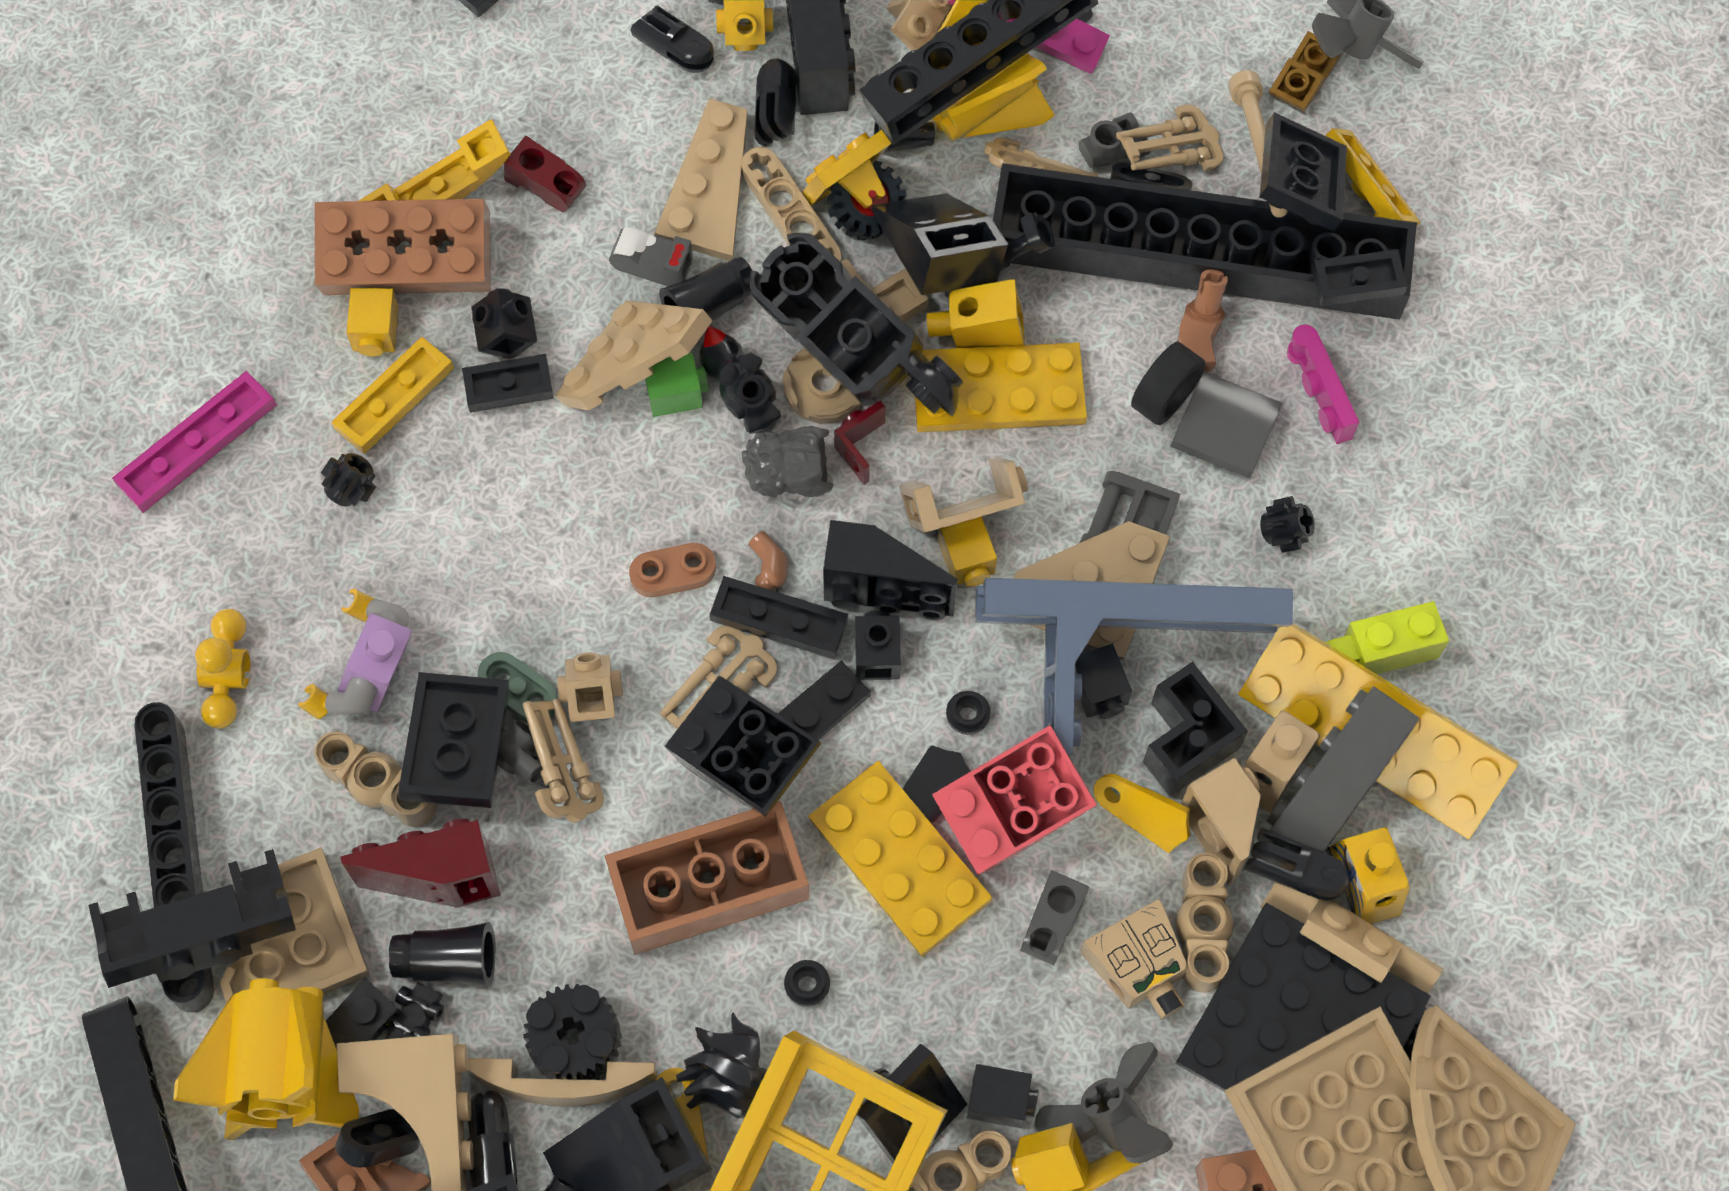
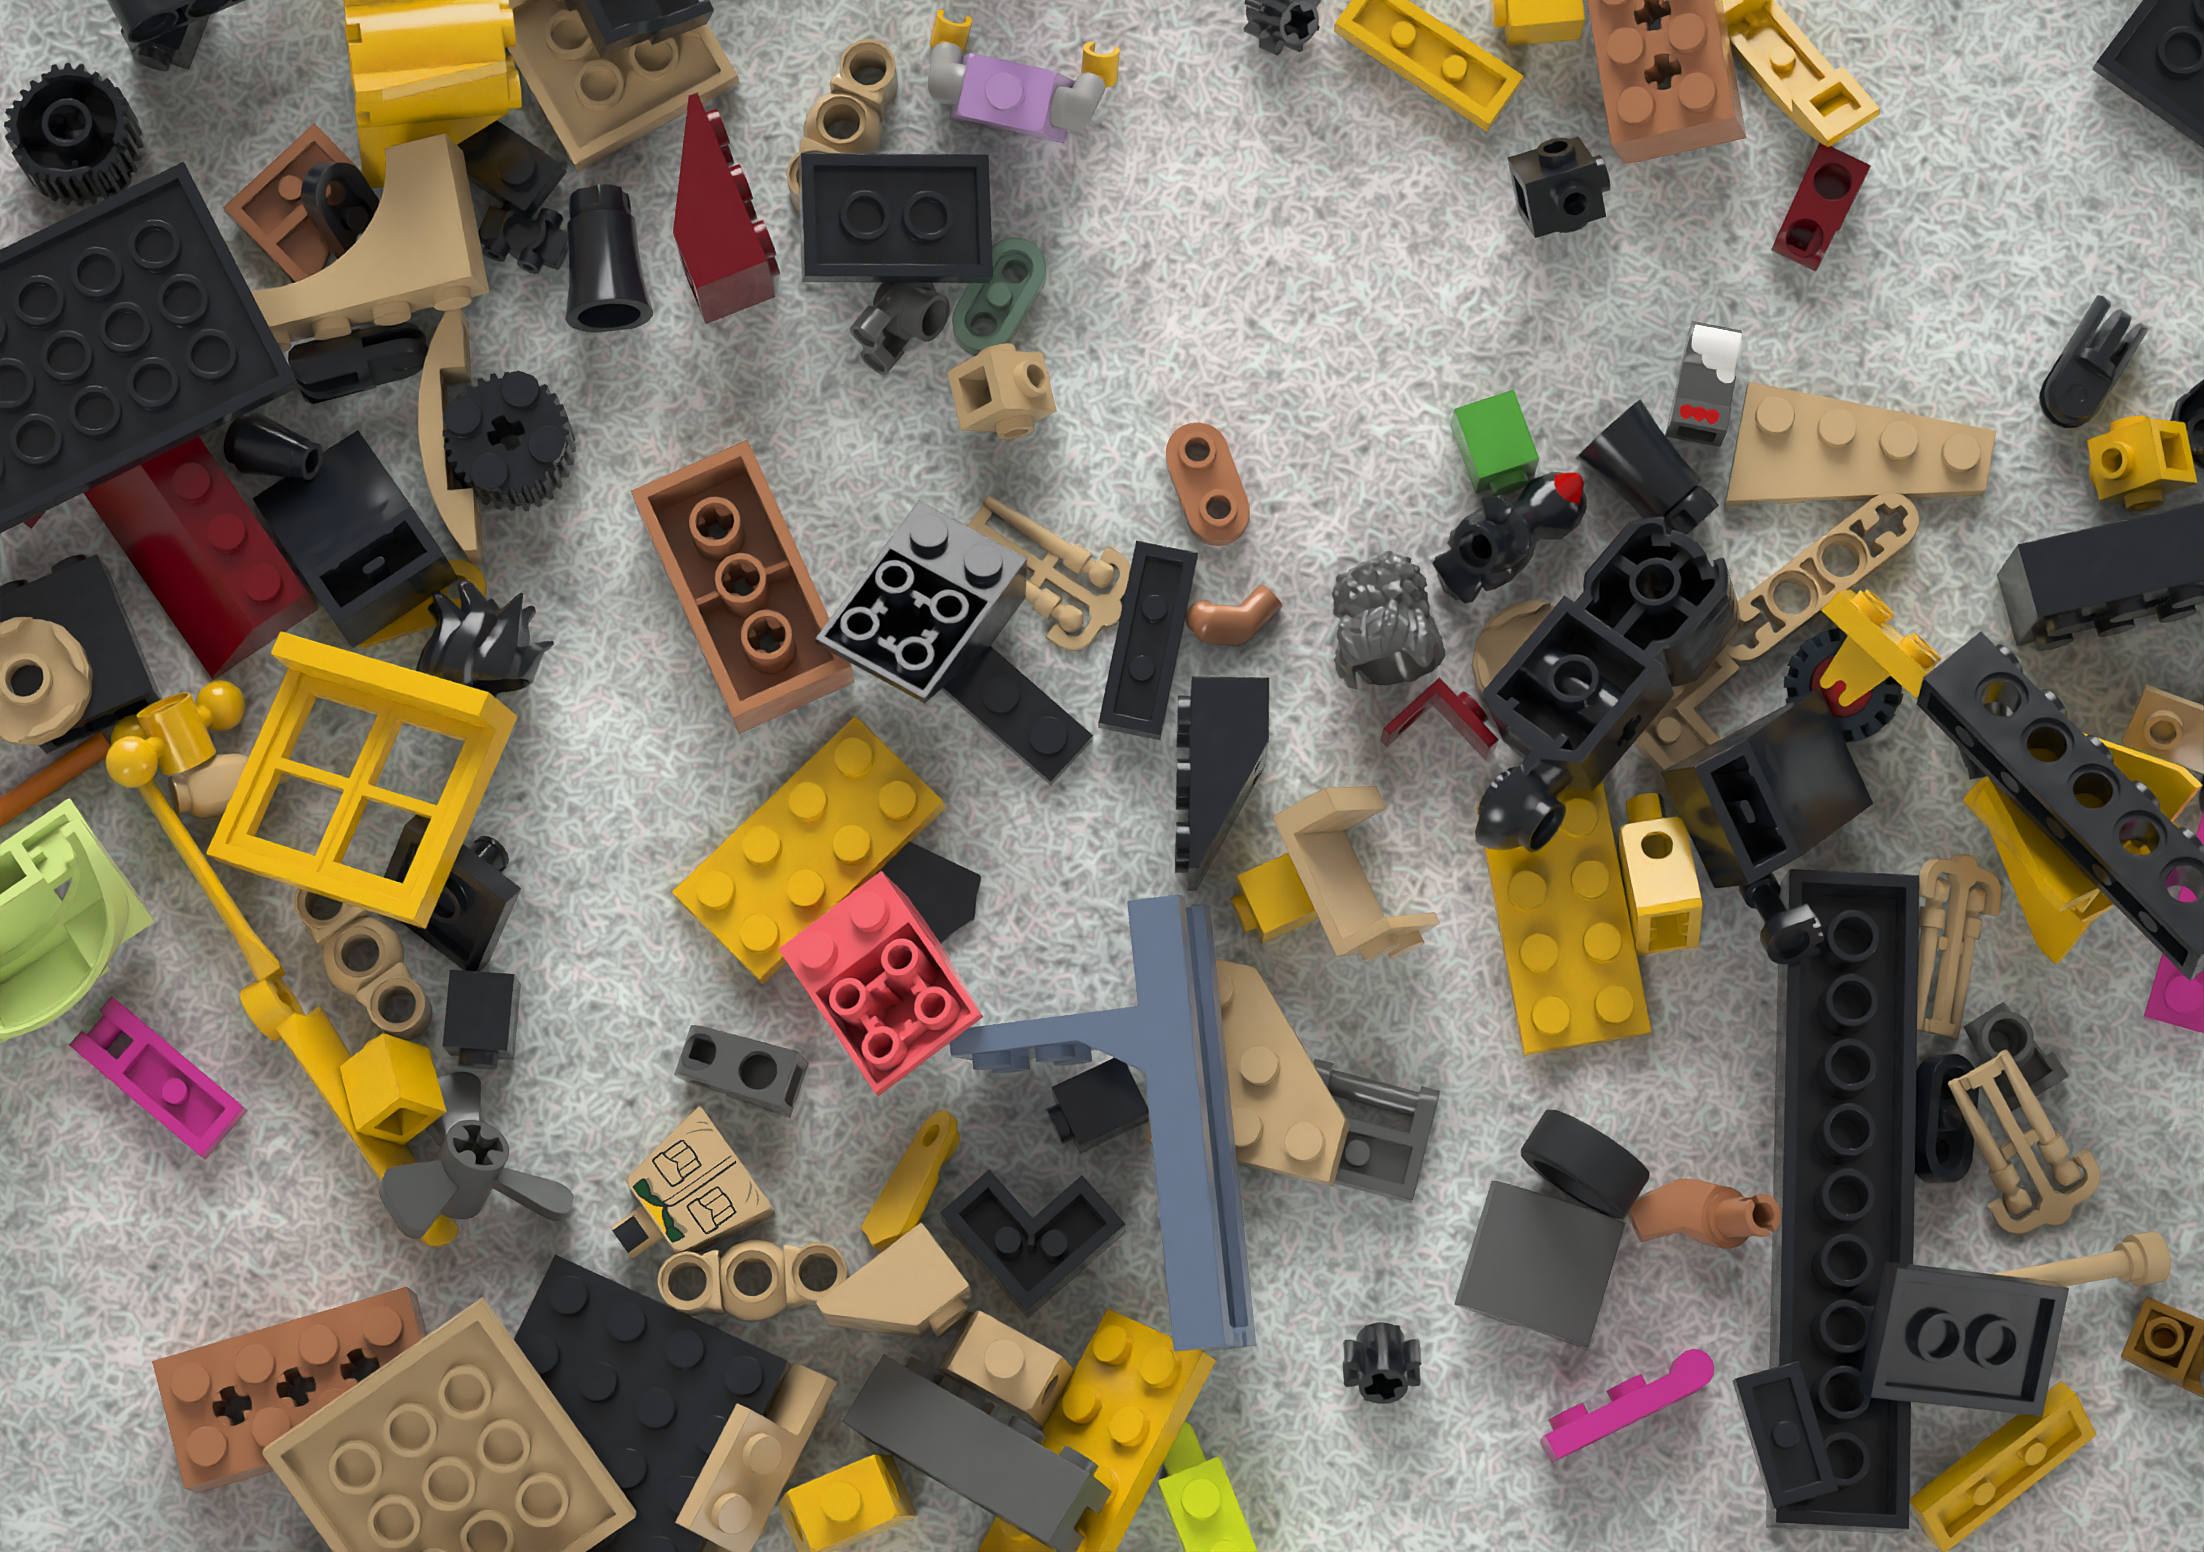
camera: 85 degrees right, 10 degrees up
(507, 383) = (1469, 209): black plate -> none
(554, 765) = (826, 396): tan piece -> none
(629, 347) = (1536, 371): tan plate -> none
(775, 102) = (1993, 528): black arm -> none
(803, 969) = (613, 725): black plate -> none
(877, 646) = (1118, 782): black brick -> none
(972, 700) = (1039, 903): black plate -> none
(1297, 866) = (825, 1414): black arm -> none

